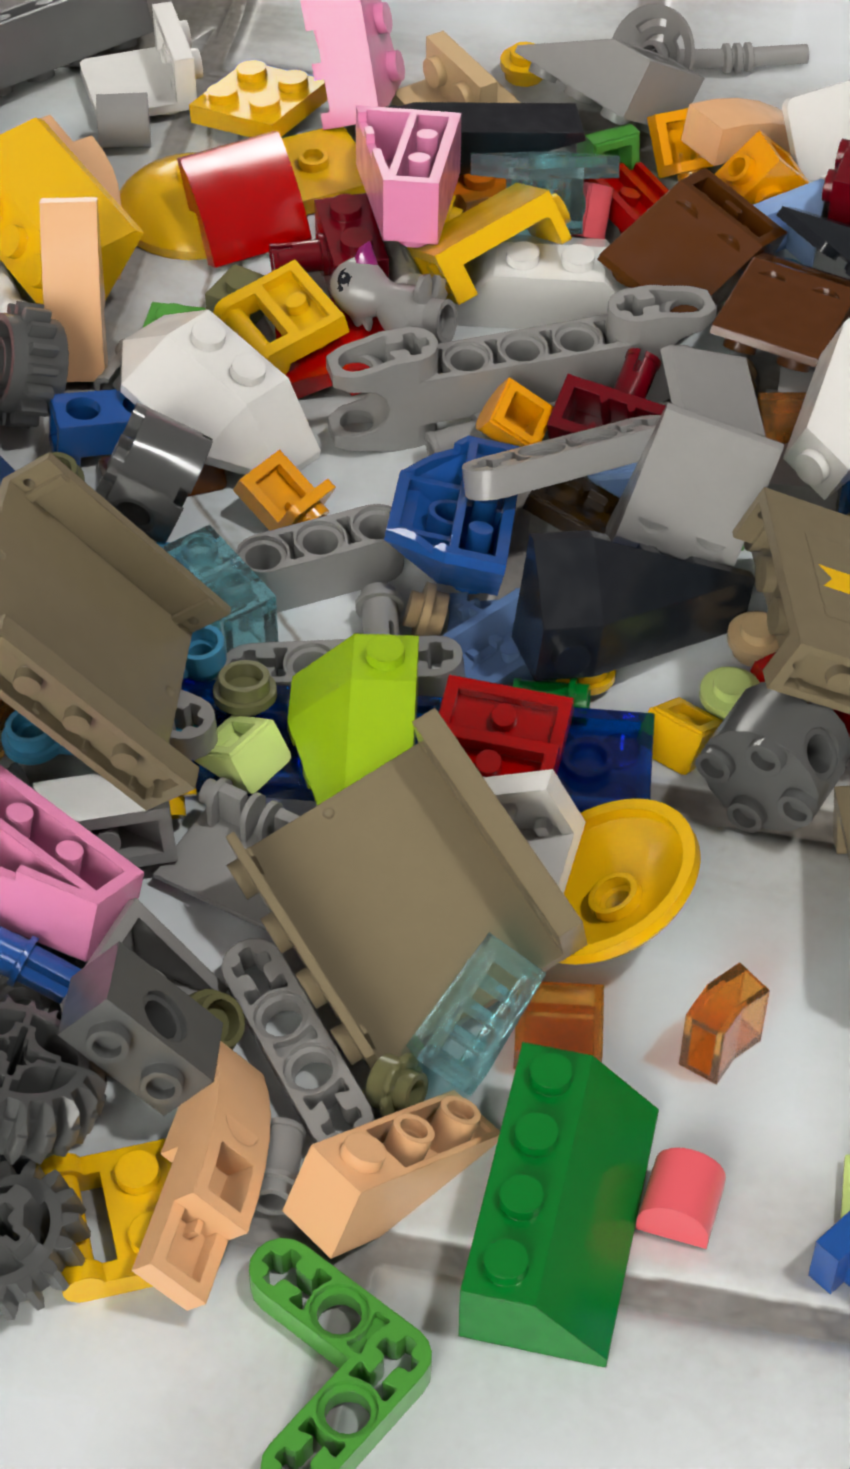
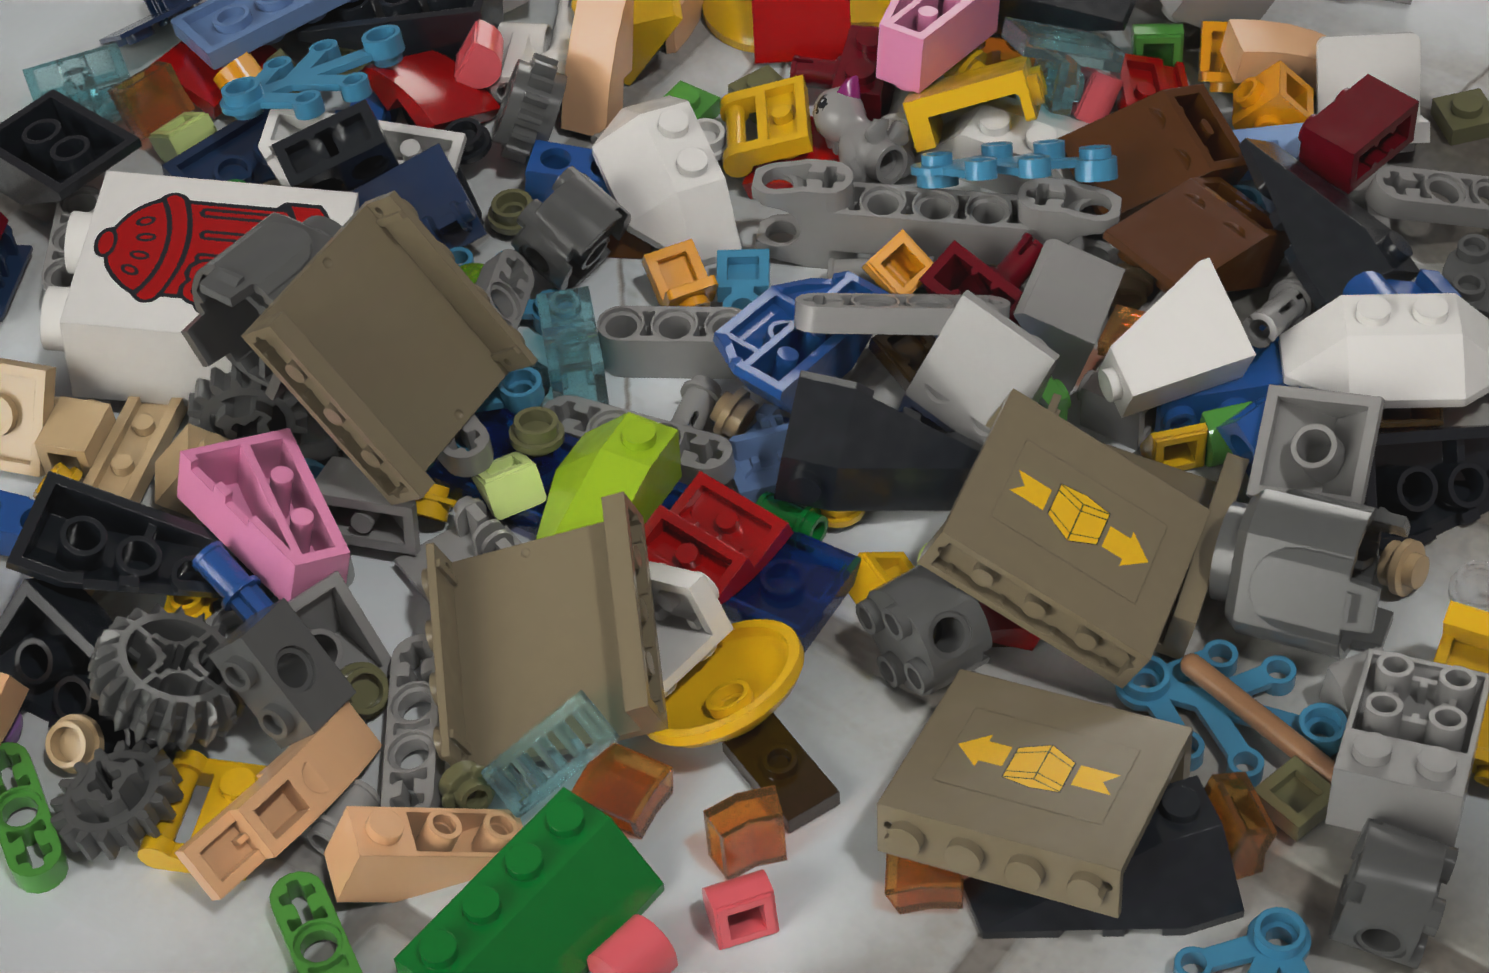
camera: 30 degrees right, 0 degrees up
(353, 474) = (742, 276): none -> dark azure plate
(514, 310) = (941, 171): none -> dark azure plant
(703, 949) = (774, 757): none -> dark brown plate
(761, 1103) = (741, 909): none -> coral brick

